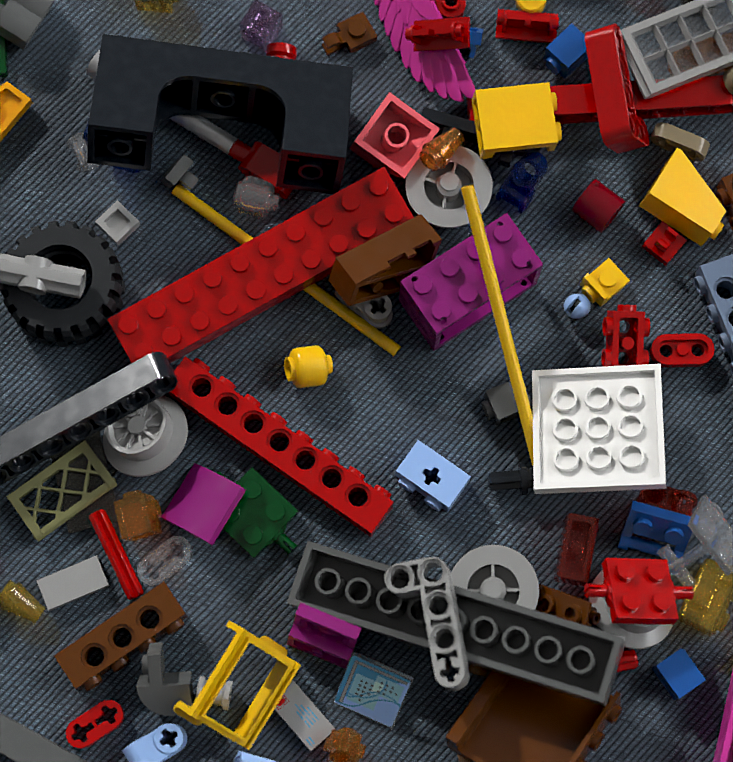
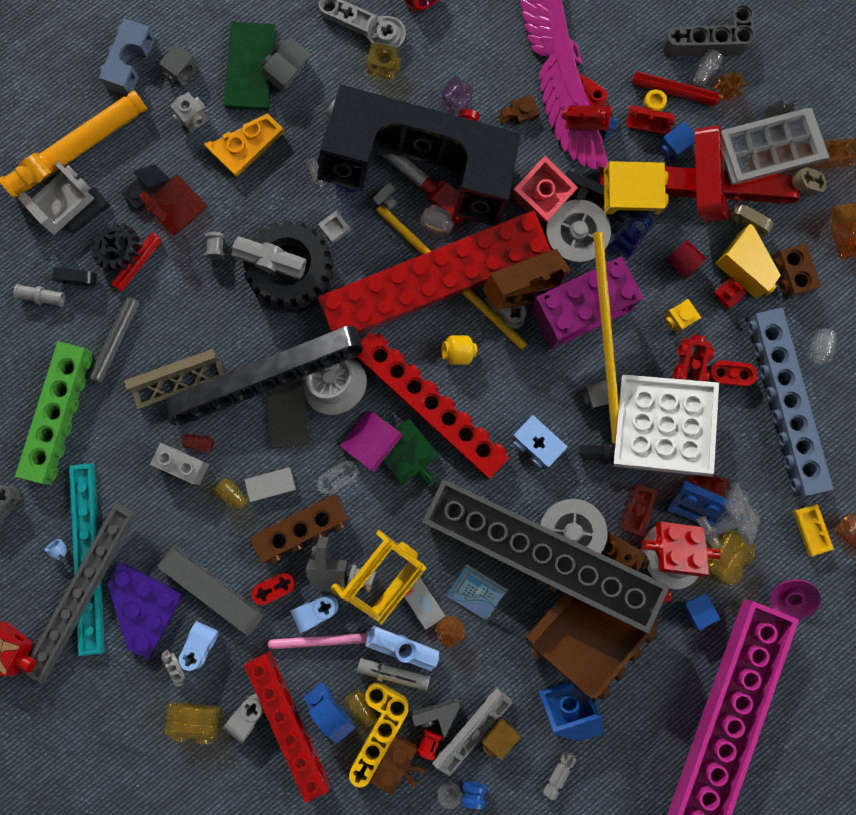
camera: 10 degrees right, 5 degrees up
(37, 481) = (253, 408): olive window -> none
(116, 554) = (303, 468): red axle -> none
(138, 515) = (322, 442): clear orange brick -> none
(323, 635) = (446, 548): magenta slope -> none
(435, 624) = (530, 556): light grey beam -> none
(441, 149) = (576, 203): clear orange cone -> none
(581, 309) = (661, 335): light blue hinge -> none

